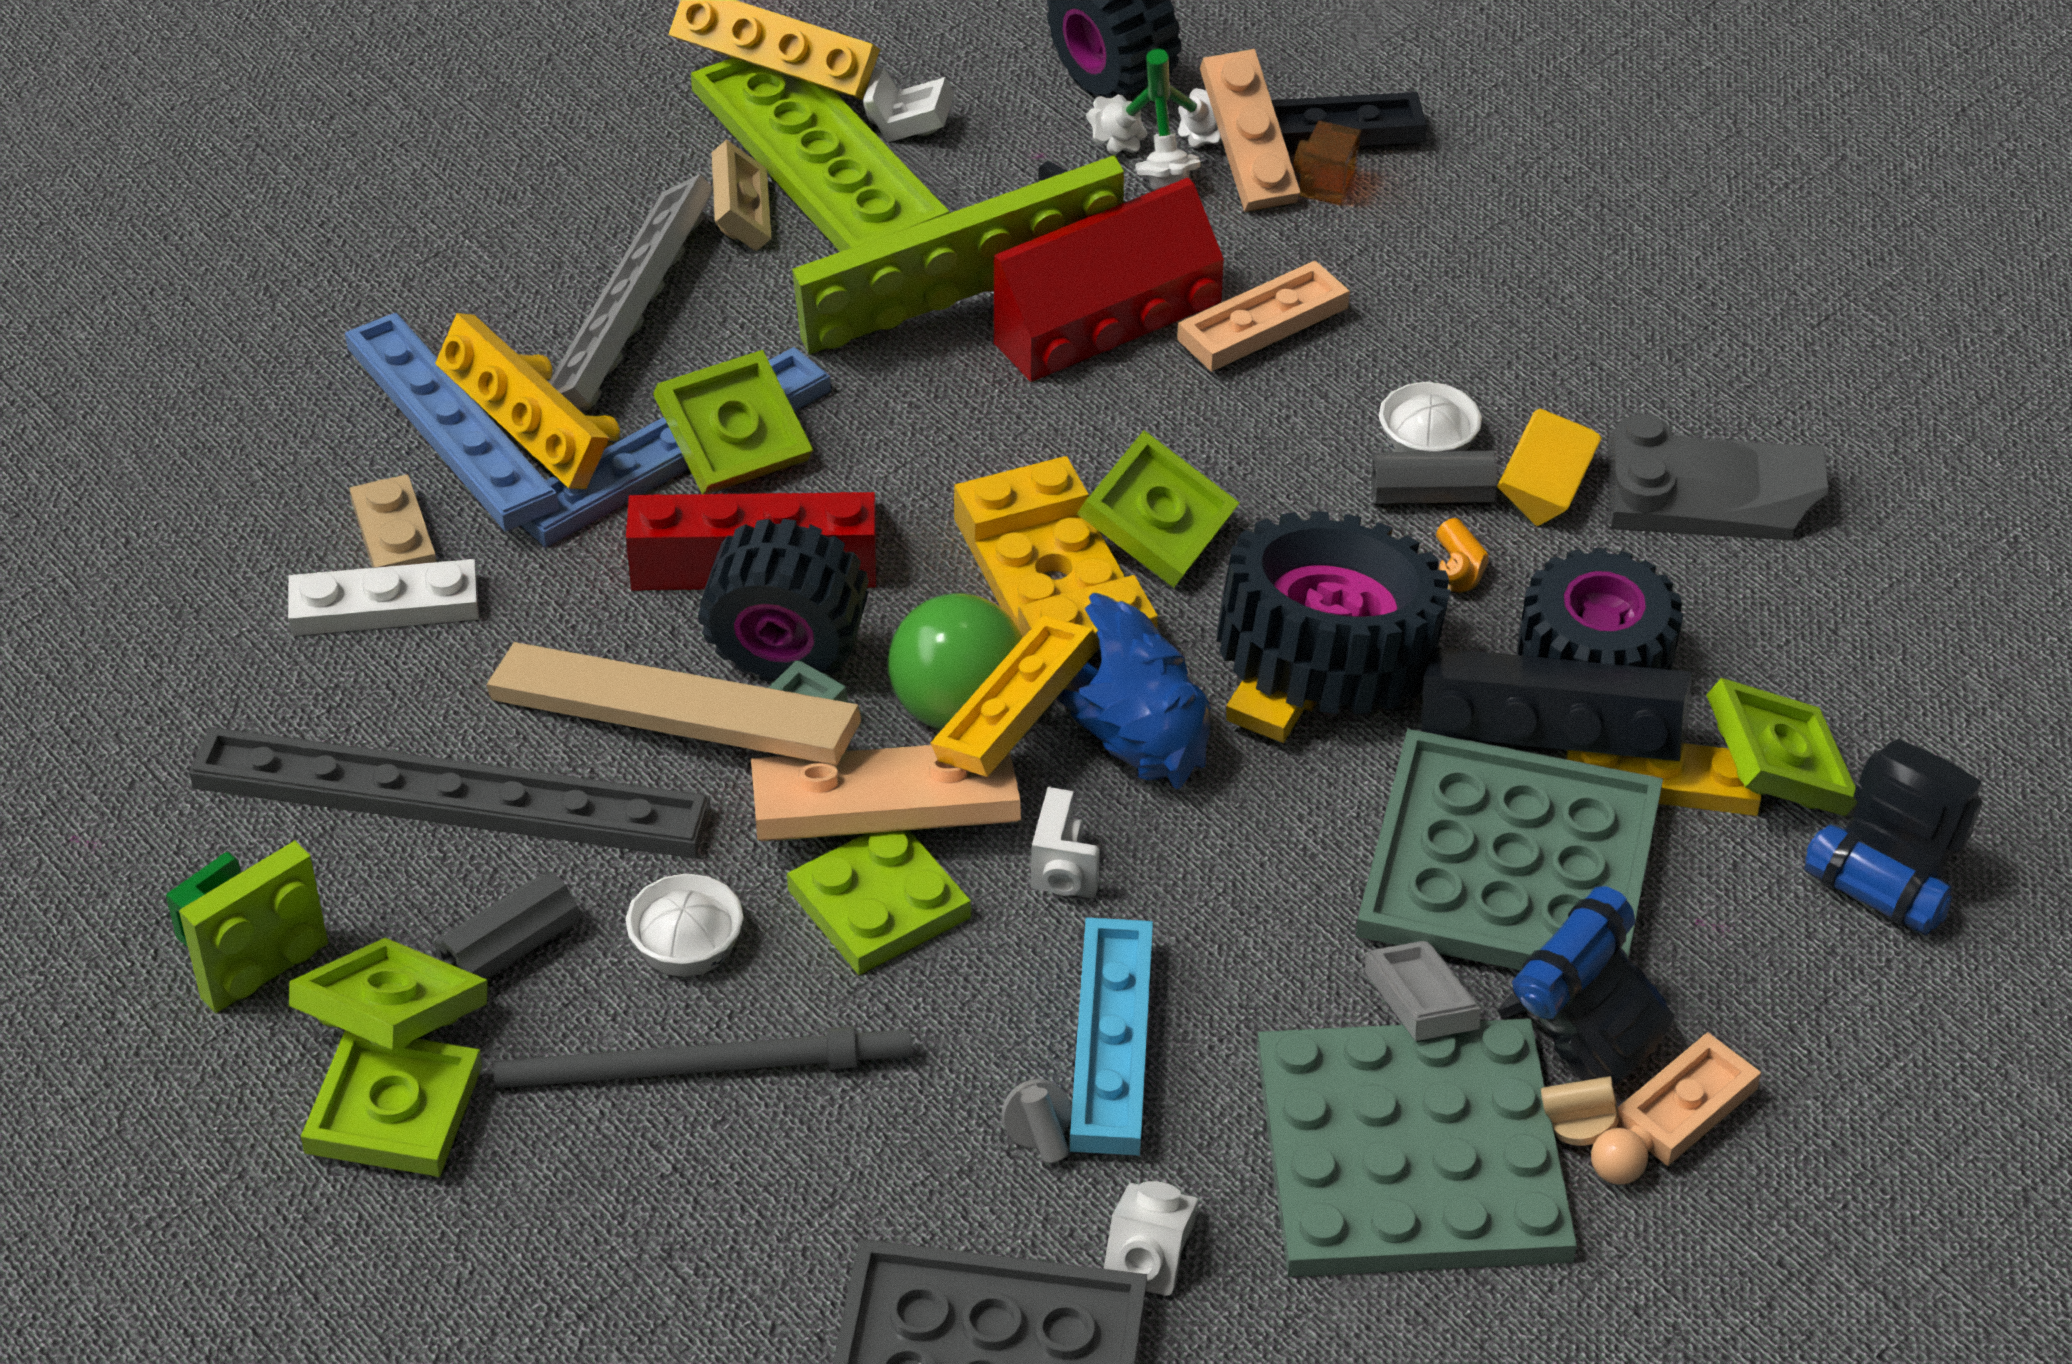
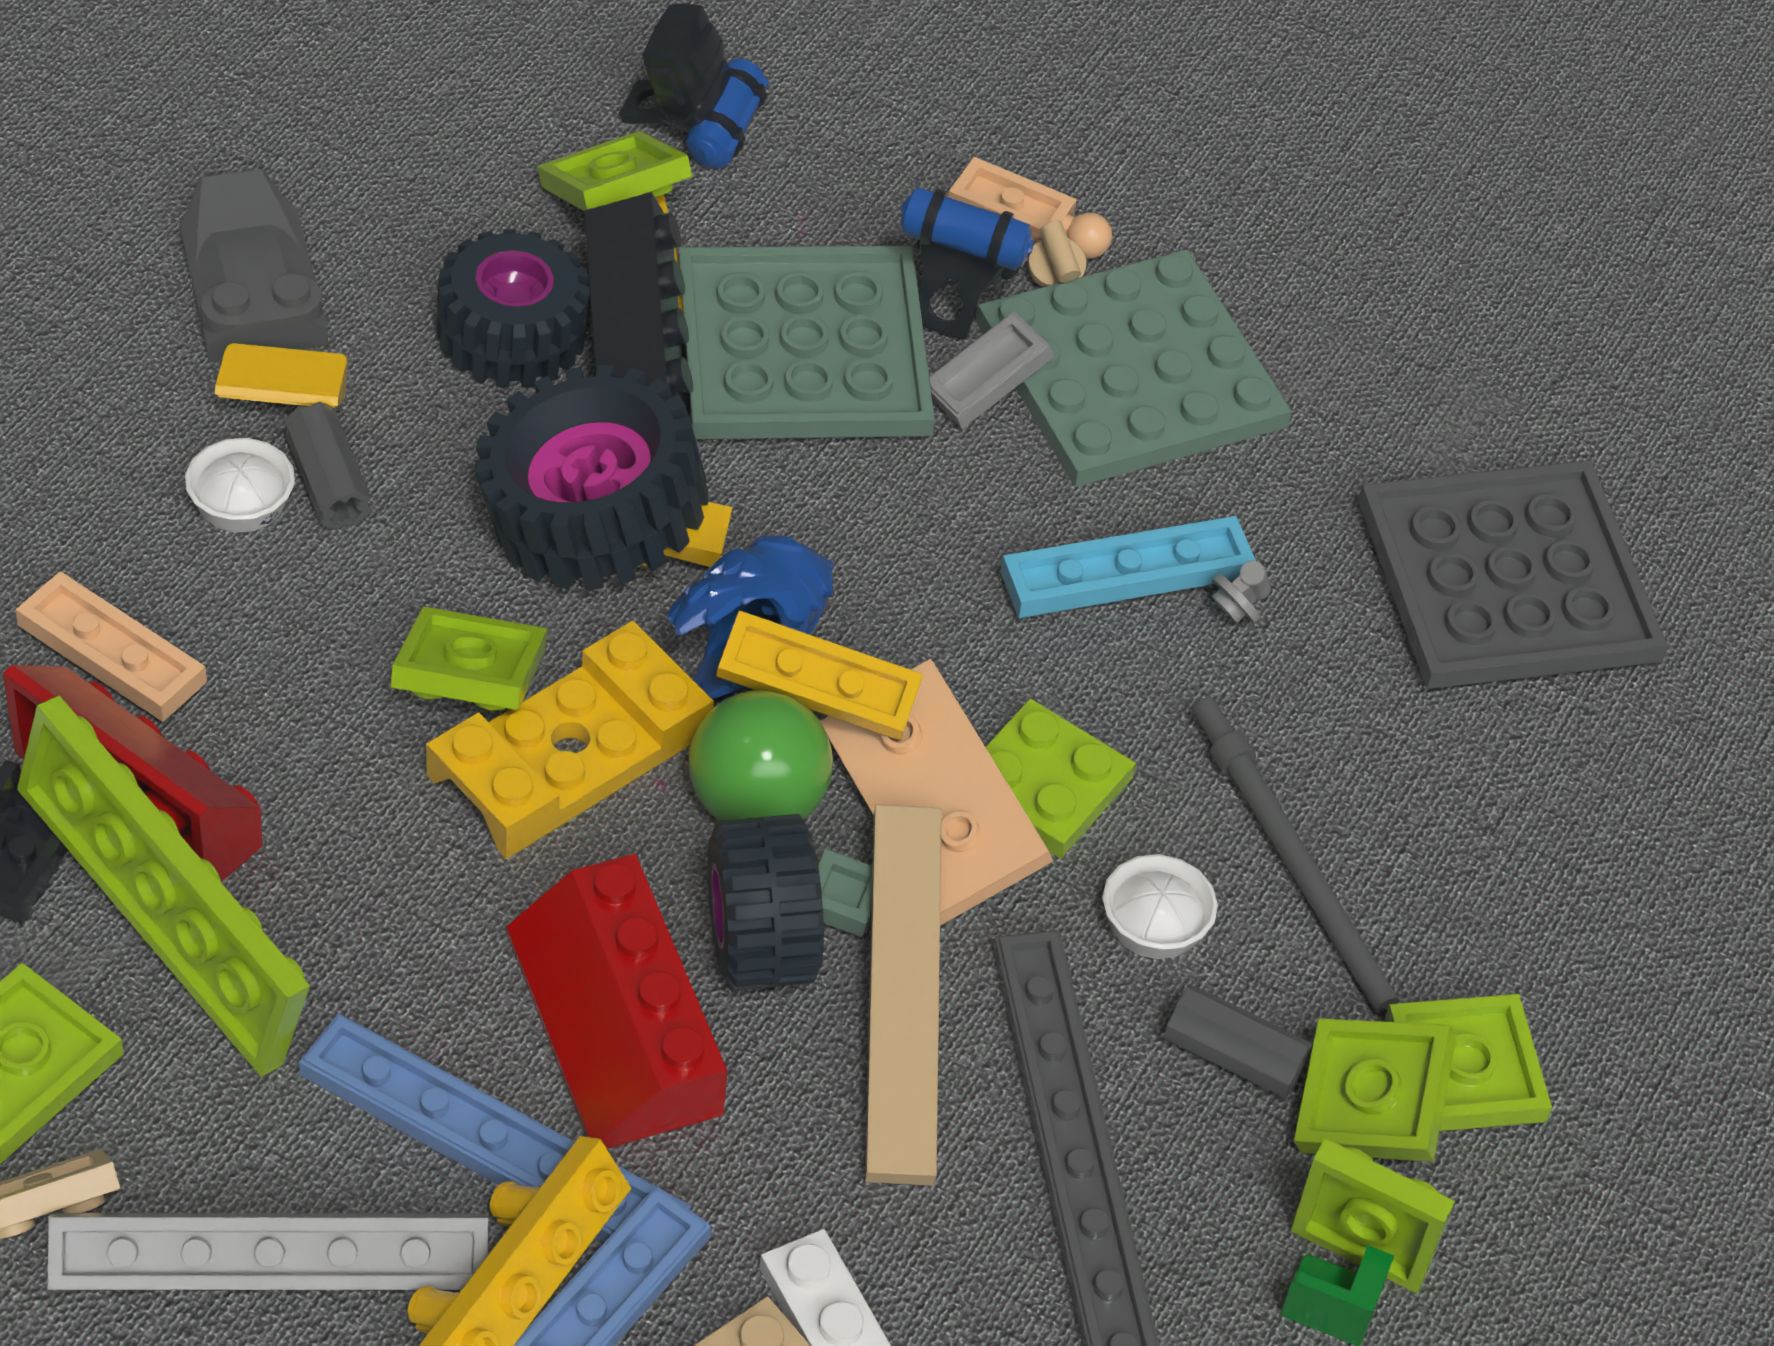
camera: 115 degrees left, 5 degrees up
(732, 422) = (474, 1059): lime plate -> none
(1058, 856) = (948, 643): white bracket -> none
(1150, 1233) = (1311, 497): white bracket -> none
(1467, 555) = (428, 430): light orange arm -> none

